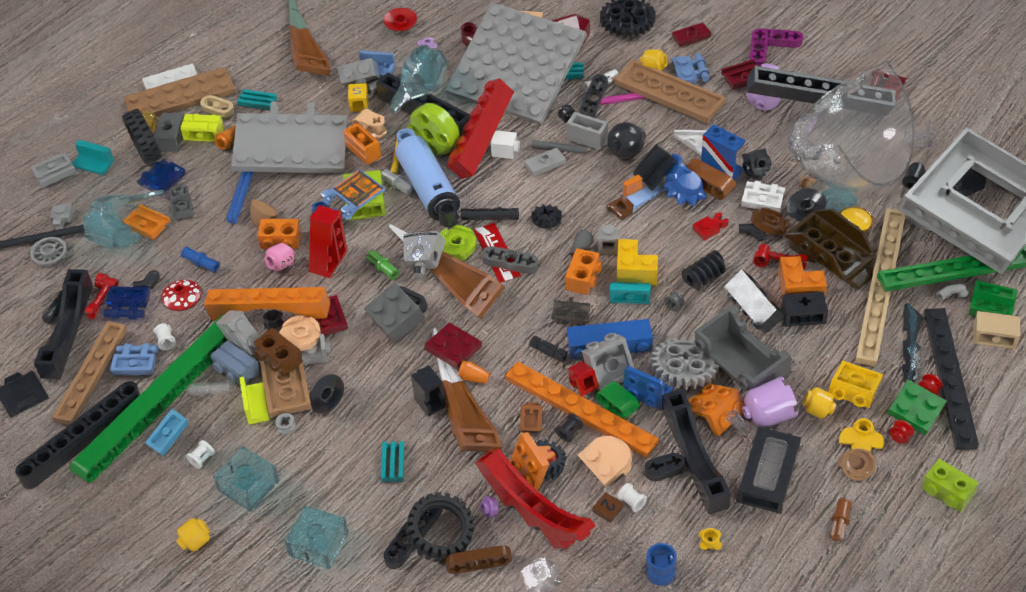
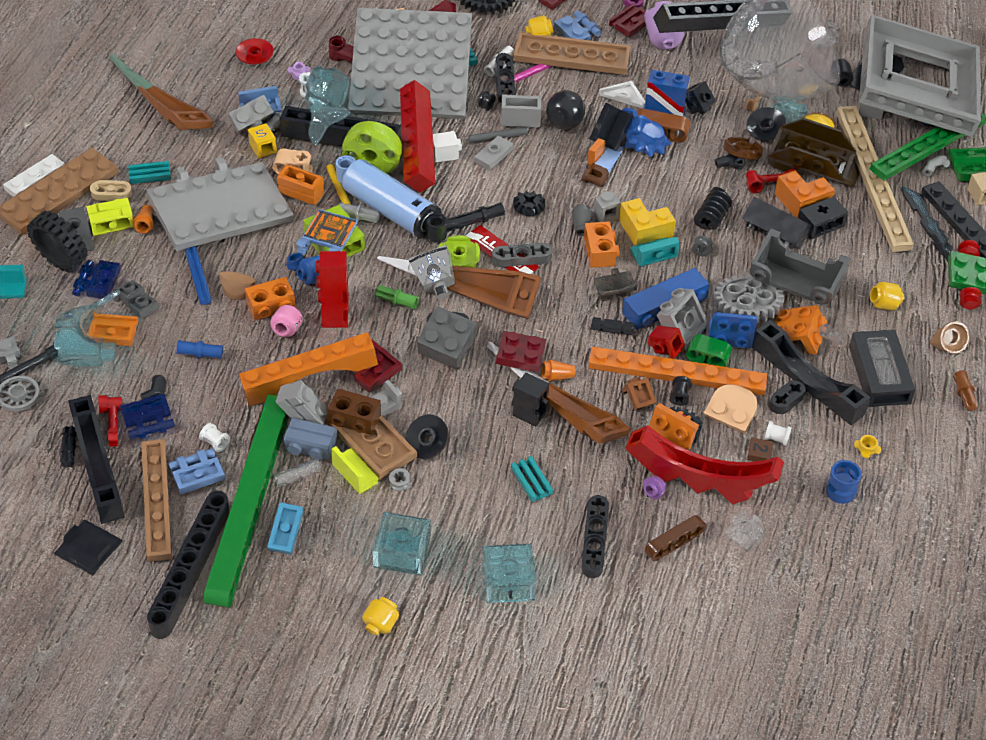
camera: 30 degrees left, 0 degrees up
(181, 295) = (199, 392): red dish -> none
(200, 454) = (333, 538): white bush -> none
(273, 319) = (319, 384): black plate -> none
(301, 331) = (363, 382): light nougat tile -> none
(442, 502) = (635, 502): black tyre -> none
(710, 227) = (688, 170): red plate -> none
(762, 196) = (720, 127): white plate -> none
(770, 403) = (851, 307): lavender cylinder -> none
(855, 384) = (908, 269): yellow plate -> none
(861, 439) = (938, 313): yellow plate -> none

